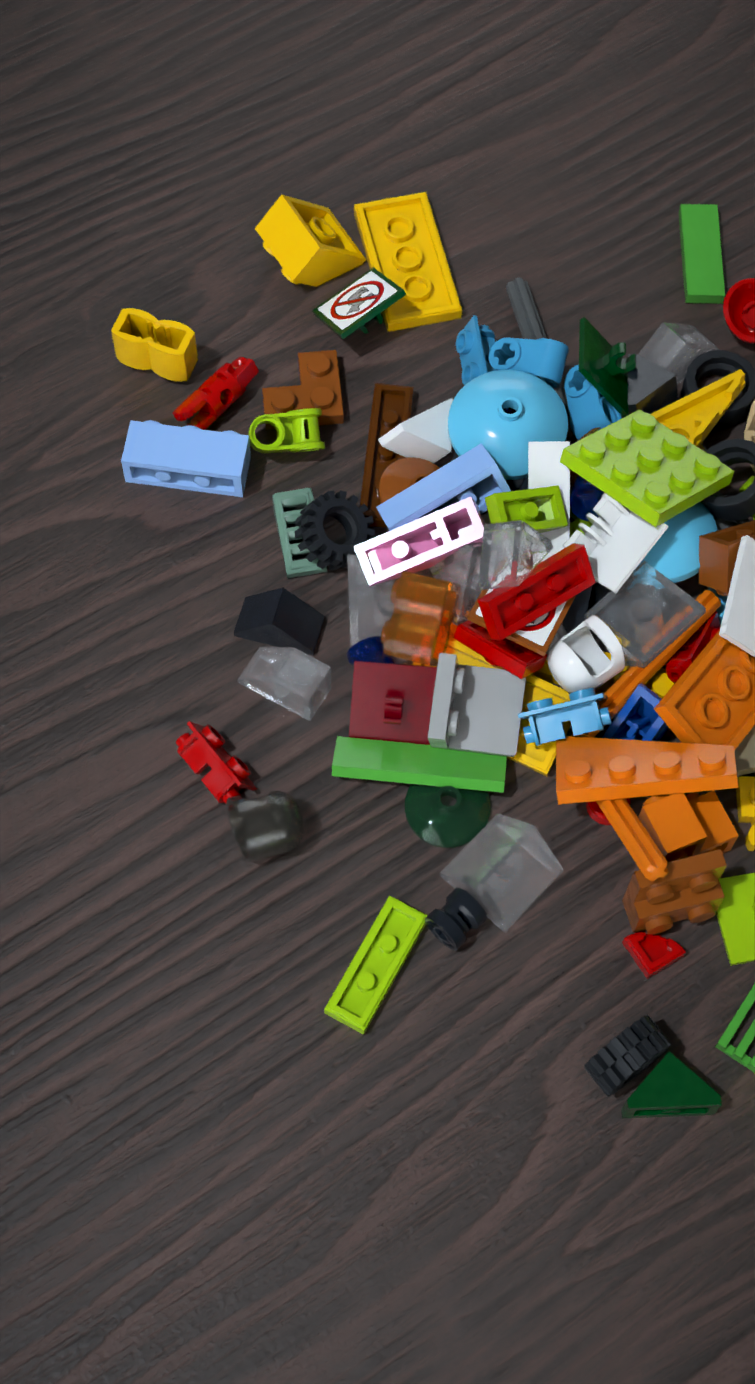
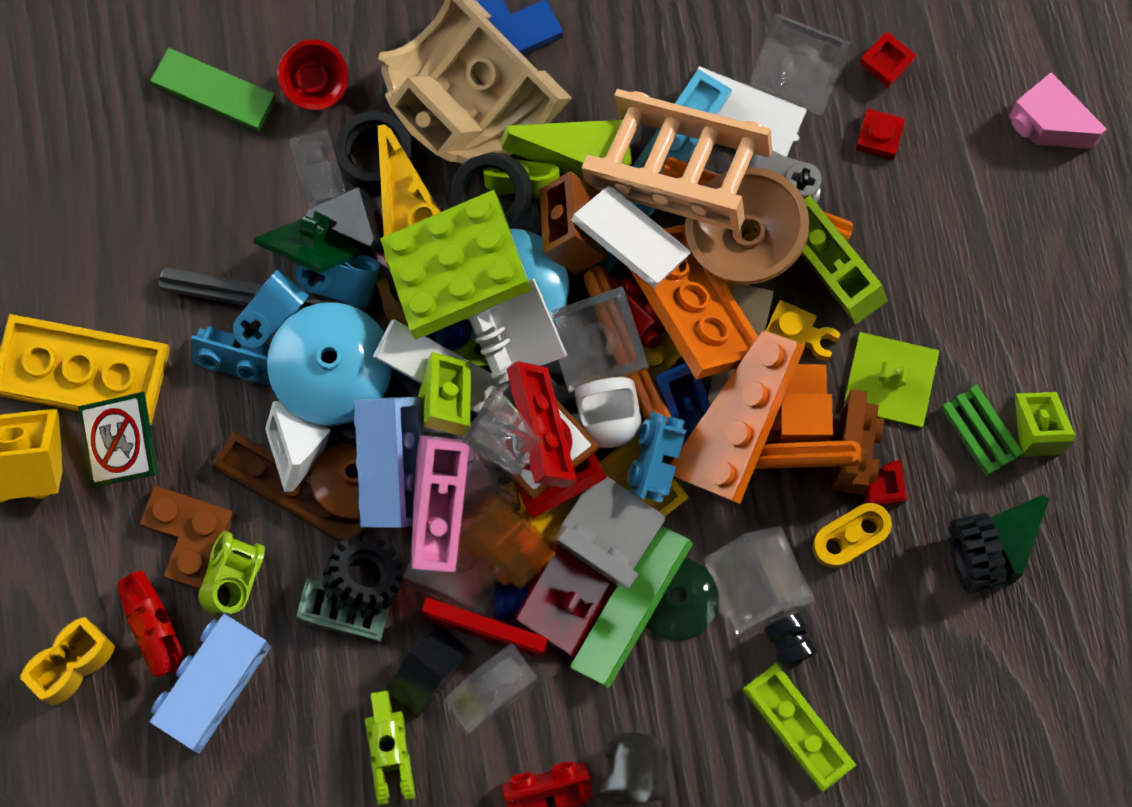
camera: 65 degrees left, 10 degrees up
(194, 617) = (382, 728): none -> lime hinge
(337, 649) = (484, 628): none -> red tile
(589, 933) = (850, 535): none -> yellow plate

